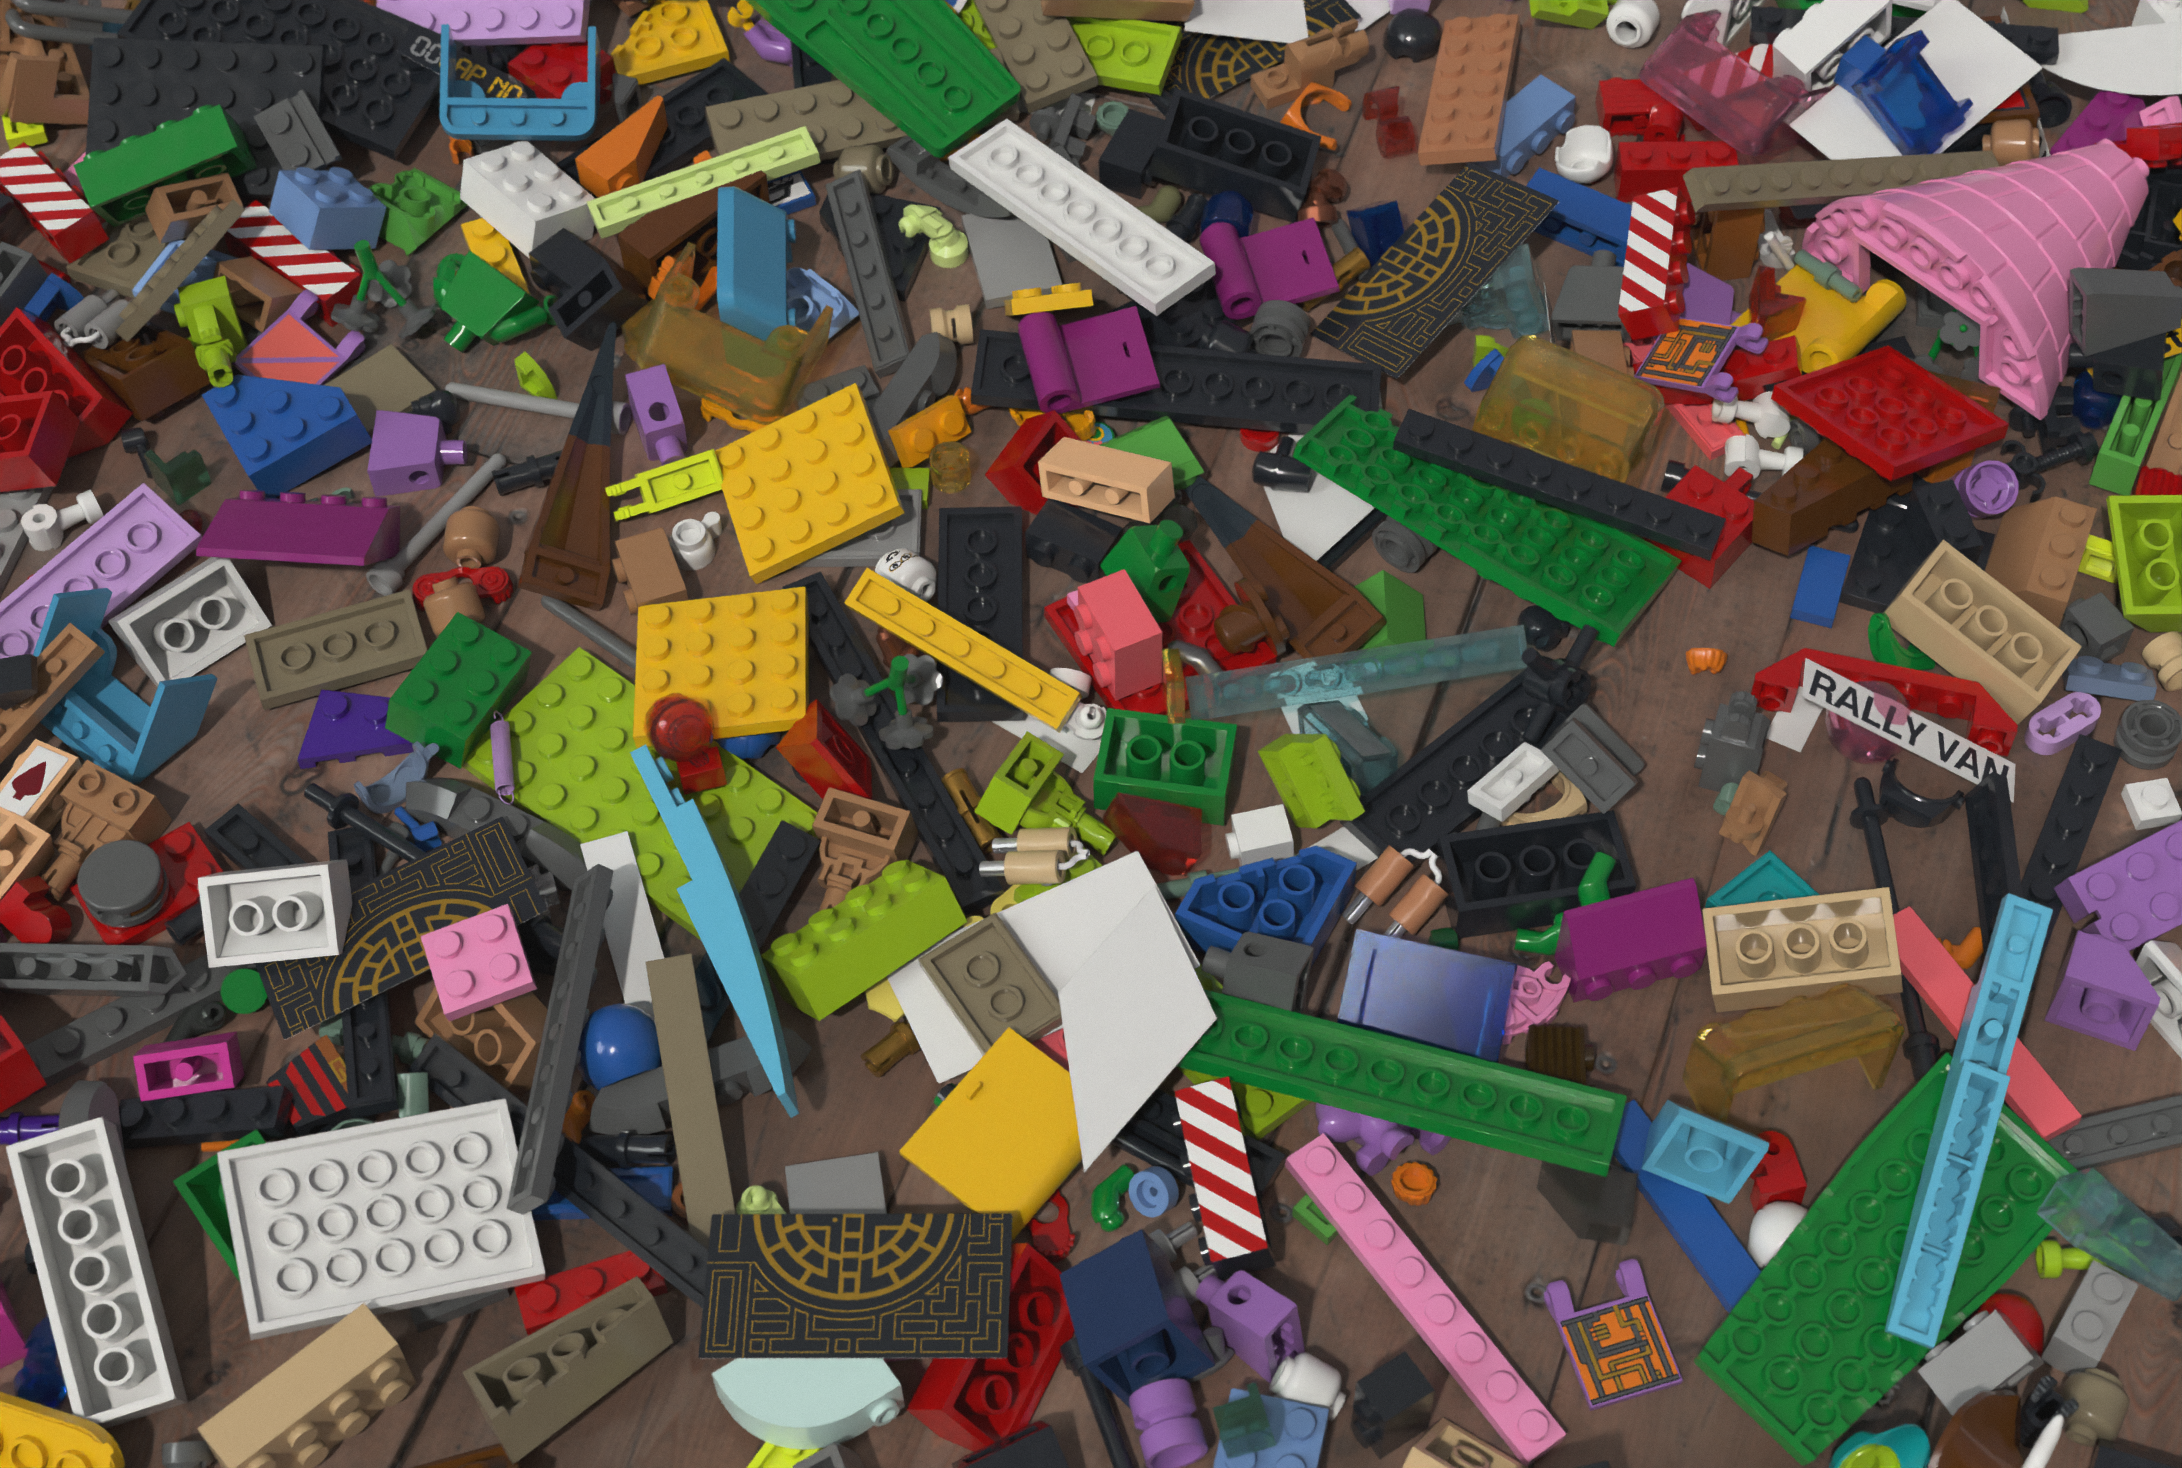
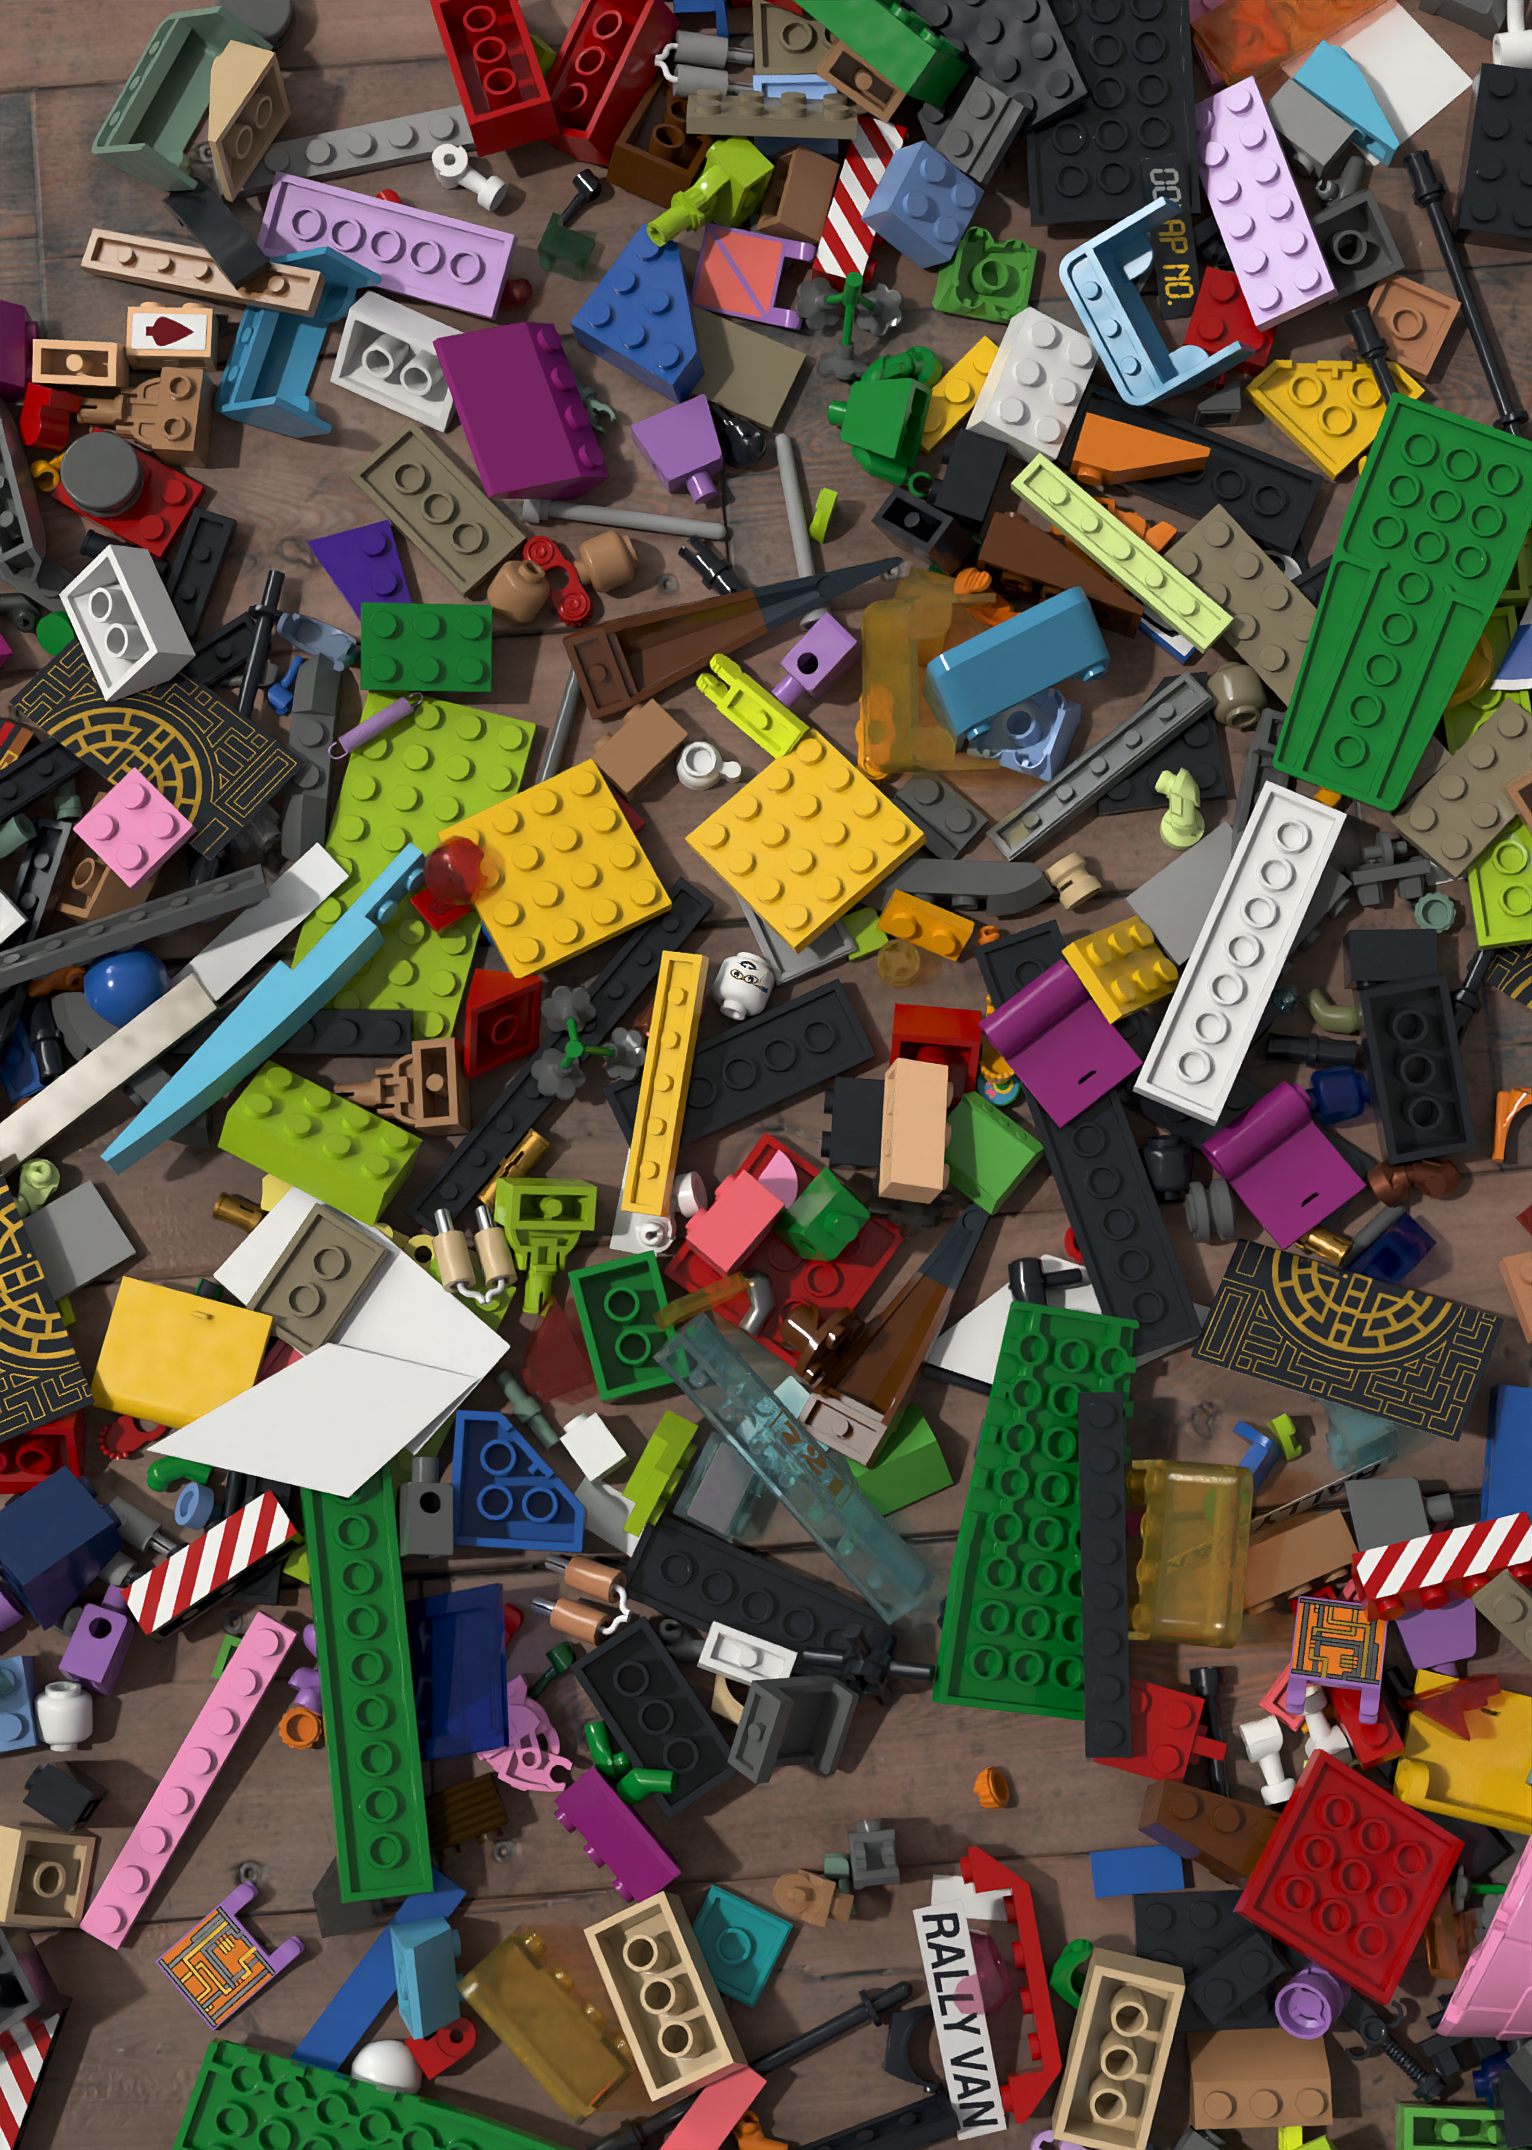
camera: 65 degrees right, 25 degrees up
(83, 935) = (53, 467): none -> light orange hand

